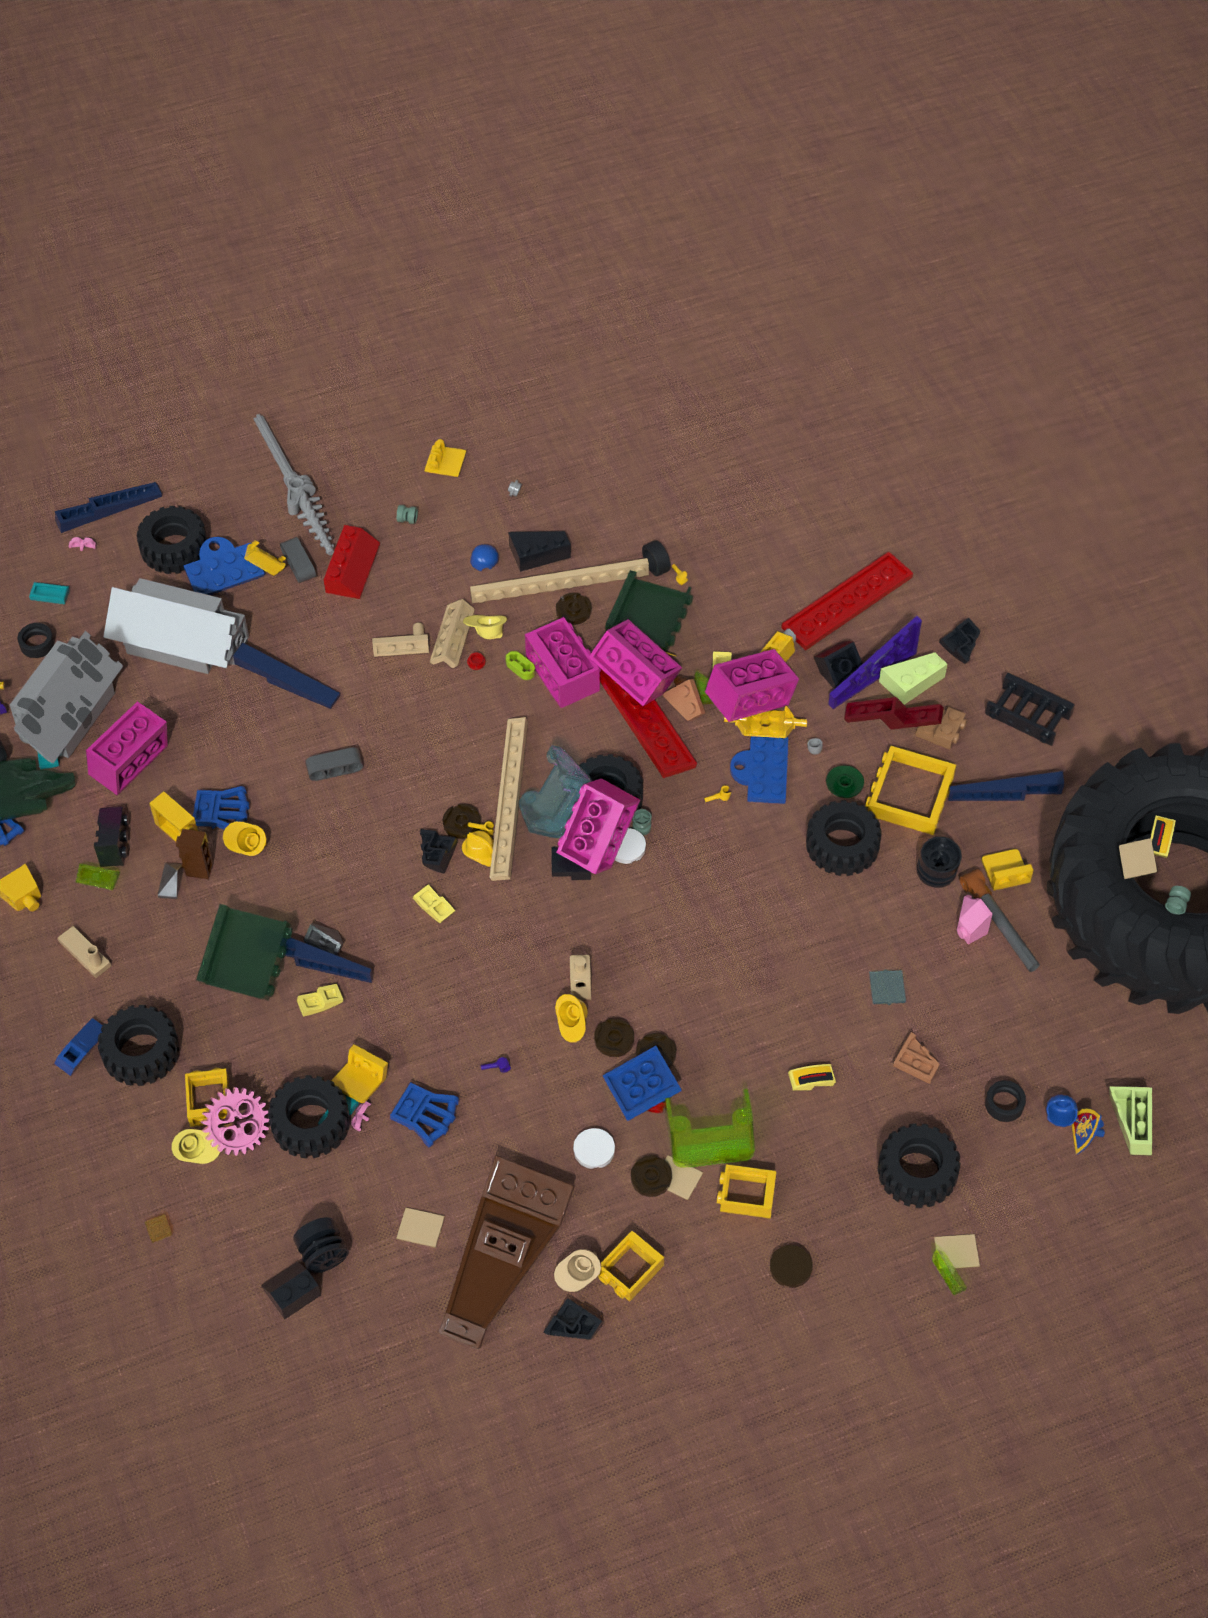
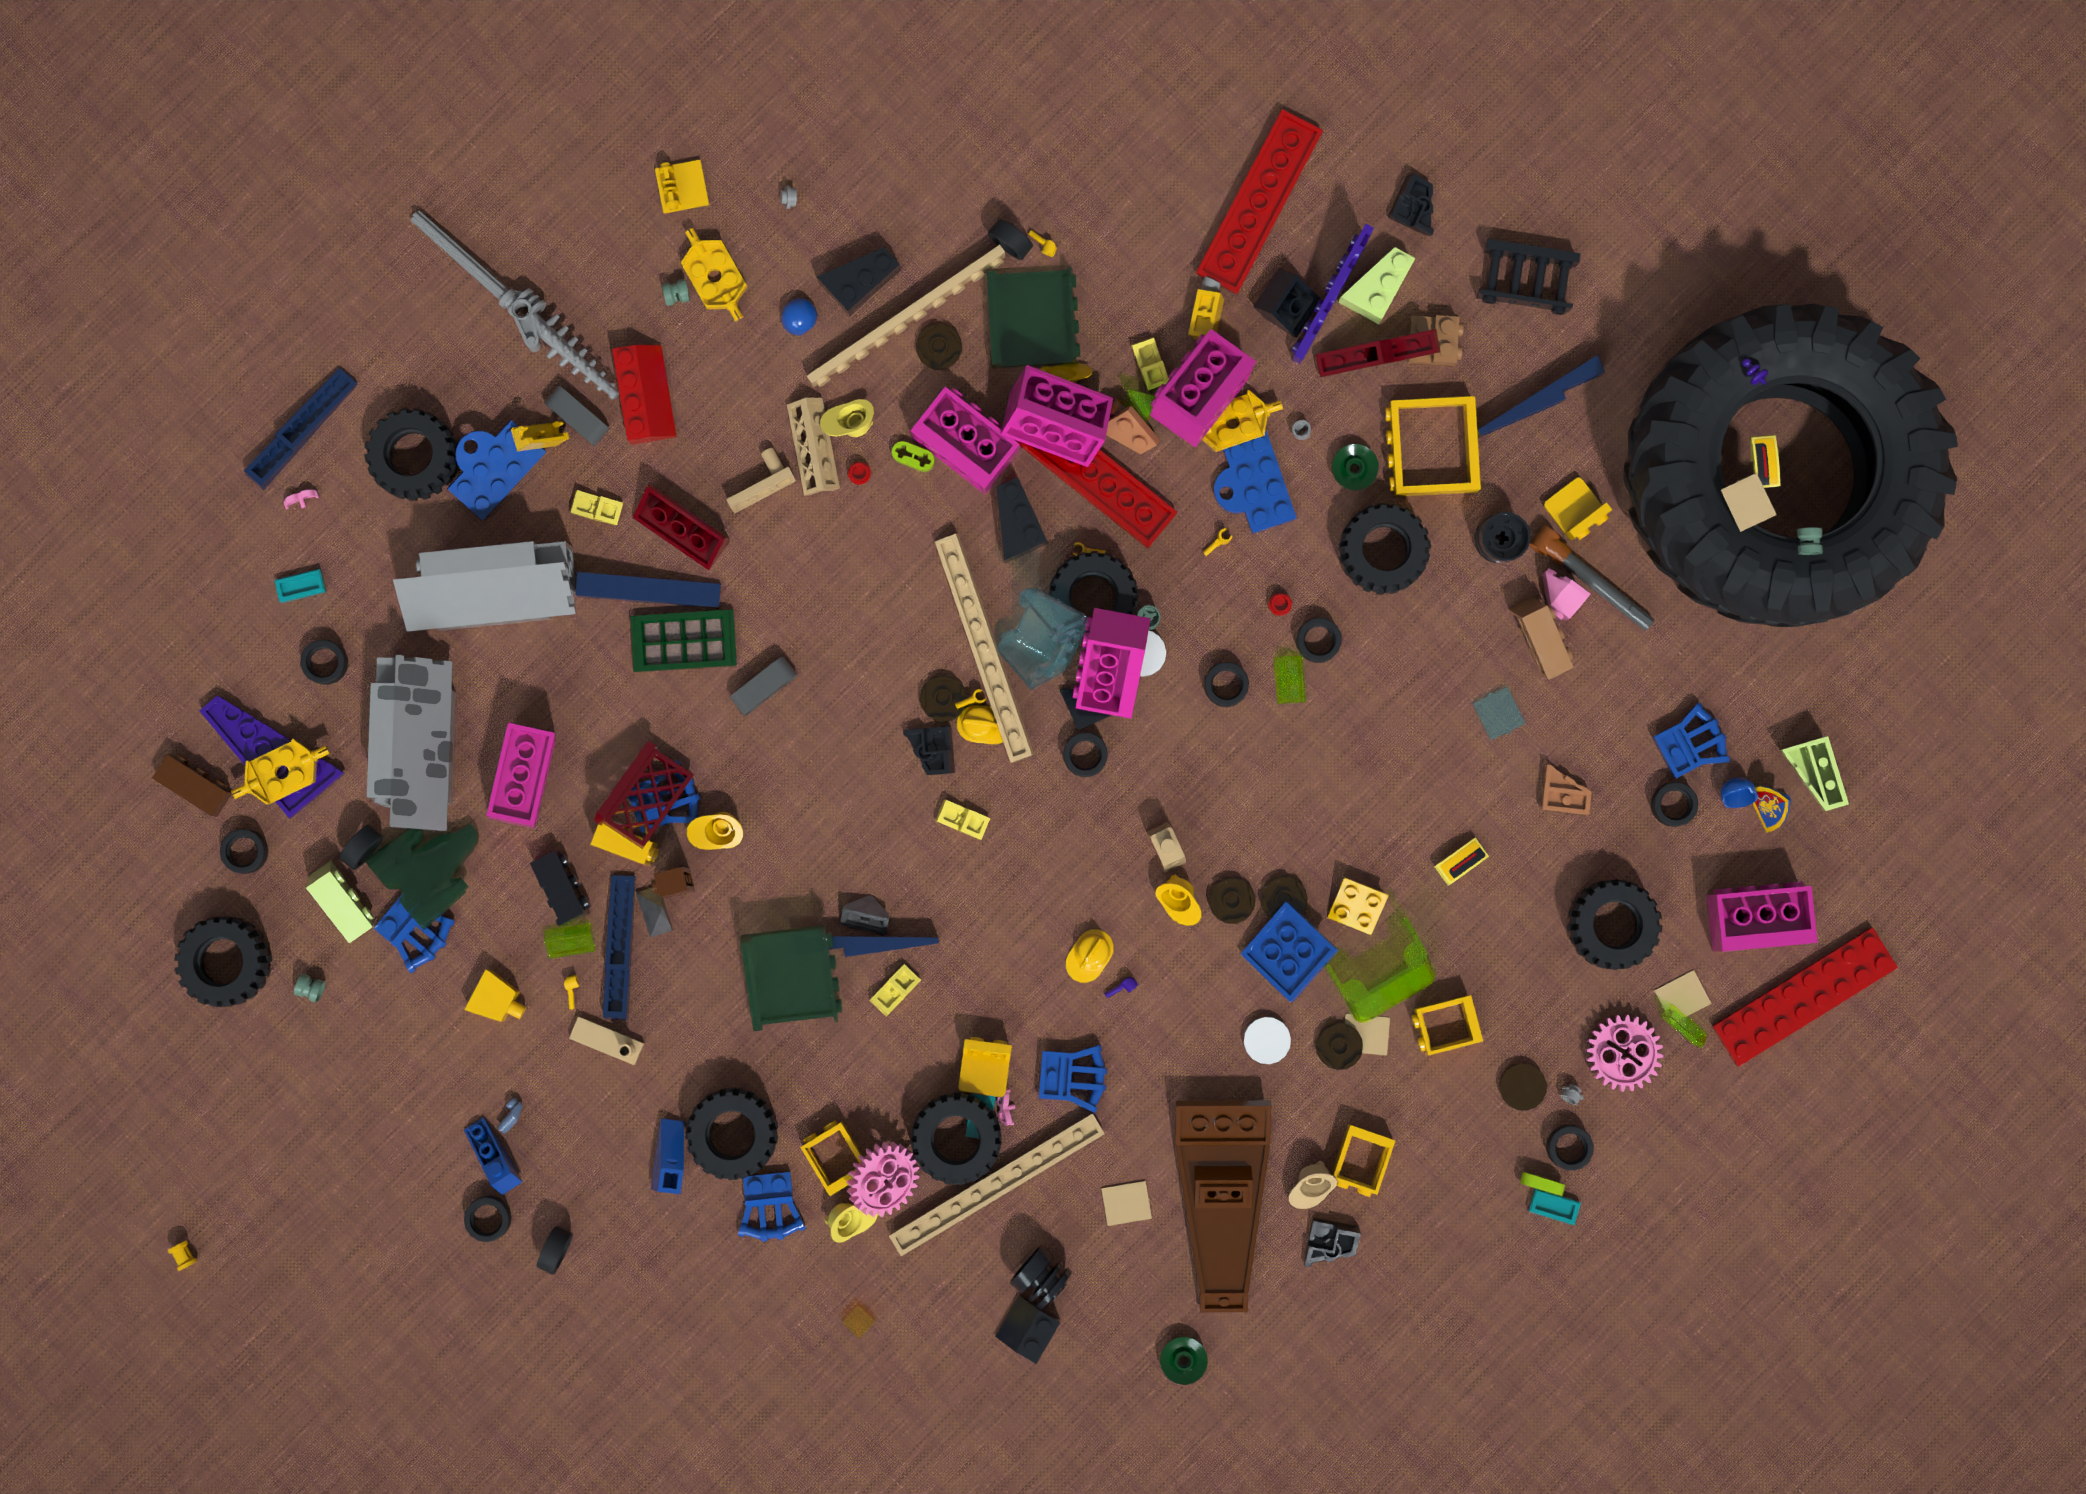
camera: 25 degrees left, 30 degrees up
(80, 902) = (570, 983): none -> yellow hand
(129, 895) = (619, 948): none -> dark blue slope
(137, 1102) = (769, 1190): none -> blue plate
(200, 777) = (627, 783): none -> dark red fence
(278, 618) = (596, 507): none -> light yellow slope
(293, 718) = (683, 641): none -> dark green piece
(323, 1168) = (996, 1184): none -> tan plate
(331, 647) = (680, 527): none -> dark red slope
(405, 1355) = (1183, 1373): none -> dark green dish
(438, 503) = (713, 256): none -> yellow plate
(482, 1034) = (1089, 956): none -> yellow piece
(549, 881) = (1103, 755): none -> black tyre
(574, 727) = (1018, 521): none -> black wedge
(680, 900) = (1244, 684): none -> black tyre
(713, 1076) = (1358, 905): none -> yellow hinge
(731, 904) = (1289, 679): none -> clear neon green slope
(747, 850) = (1280, 604): none -> red plate
(766, 871) = (1336, 636): none -> black tyre
(775, 1347) = (1542, 1183): none -> lime beam
(778, 1372) = (1554, 1206): none -> teal tile
(818, 1313) = (1583, 1135): none -> black tyre
(830, 1287) = (1571, 1094): none -> light grey plate
(872, 1280) = (1635, 1035): none -> bright pink gear
(944, 942) = (1543, 637): none -> medium nougat wedge
(1024, 1065) = (1678, 749): none -> blue plate
(1046, 1207) = (1773, 928): none -> dark pink brick
(1062, 1290) = (1804, 996): none -> red plate
(1175, 778) = (1753, 370): none -> dark purple hair

